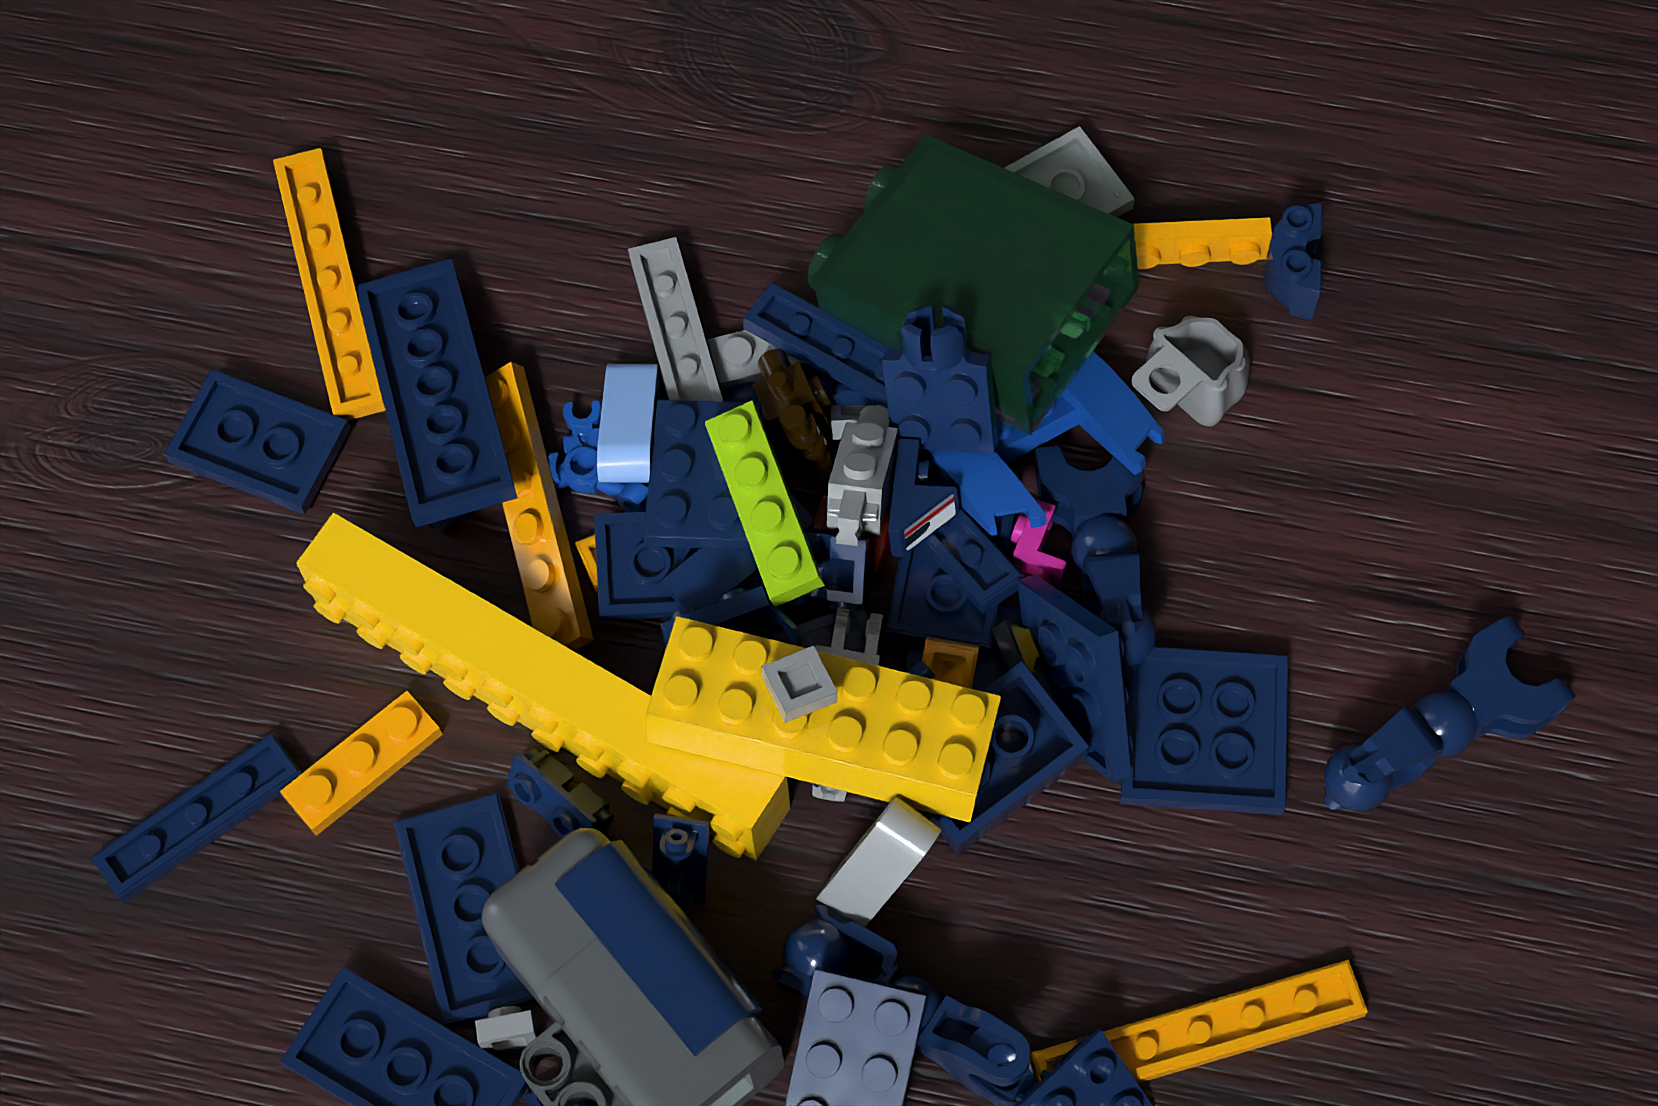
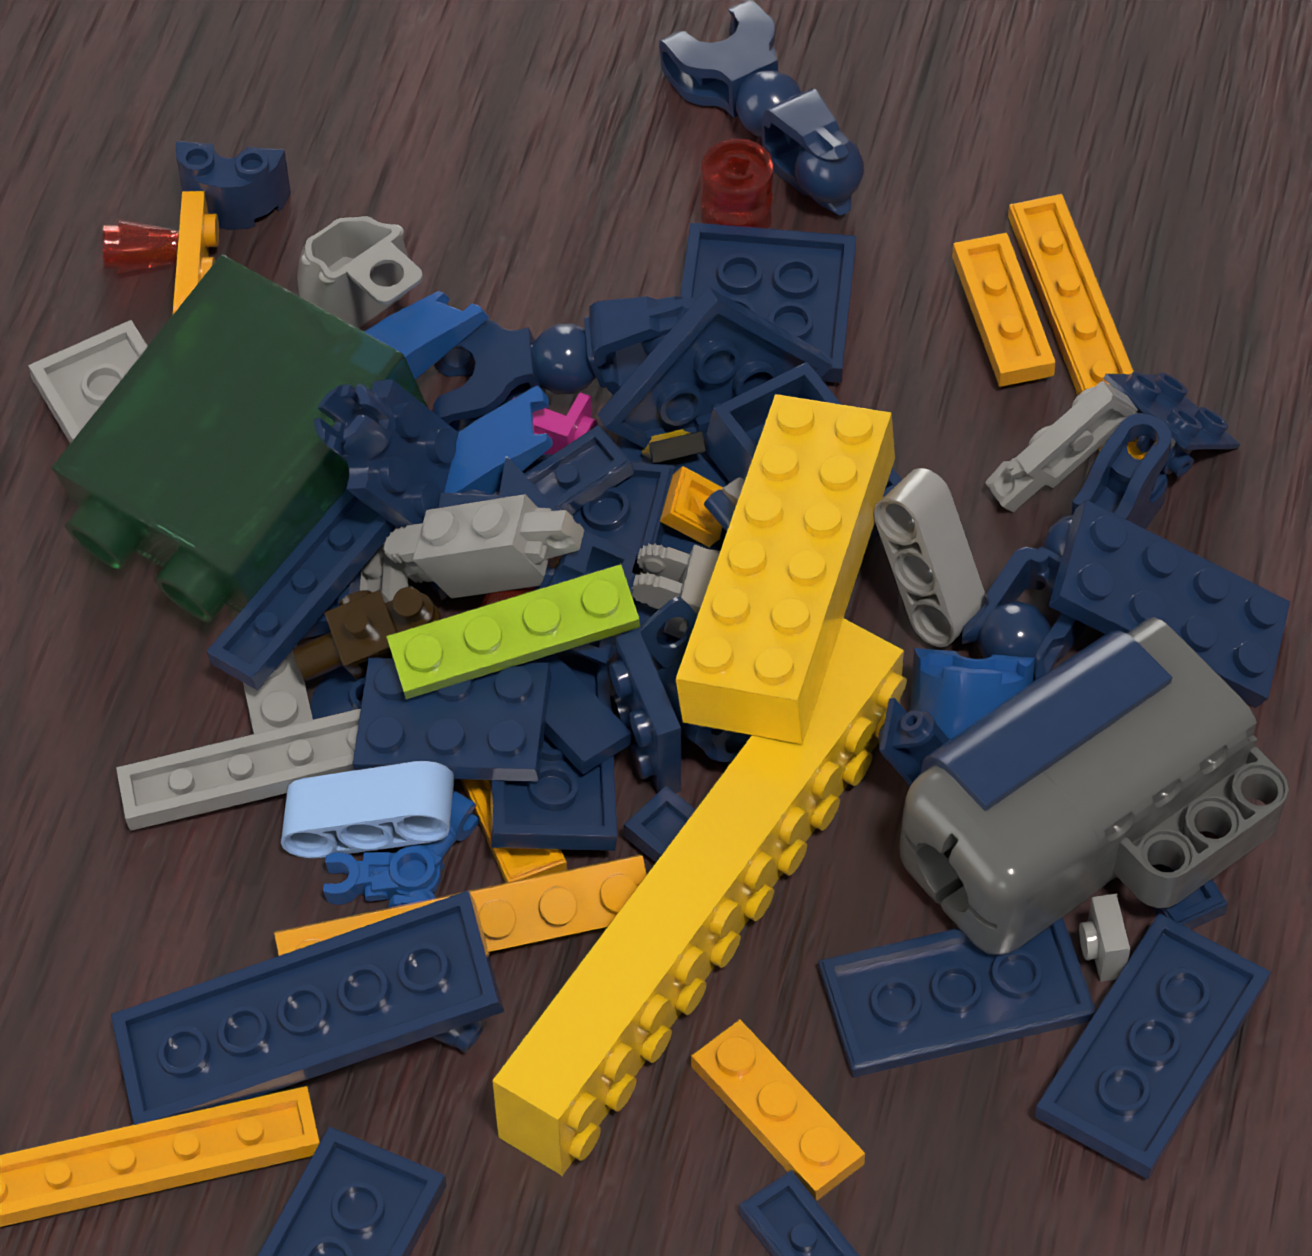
camera: 90 degrees left, 10 degrees down
(540, 783) = (843, 886): hinge -> none
(627, 658) = (658, 823): none -> dark blue plate
(744, 918) = (963, 688): none -> blue cylinder
(799, 684) = (776, 542): light grey plate -> none
(1029, 995) = (1061, 446): none -> light grey hinge
(1213, 951) = (1003, 309): none -> light orange plate
(1222, 191) = (138, 246): none -> clear red cone
(1327, 694) = (737, 184): none -> clear red wheel

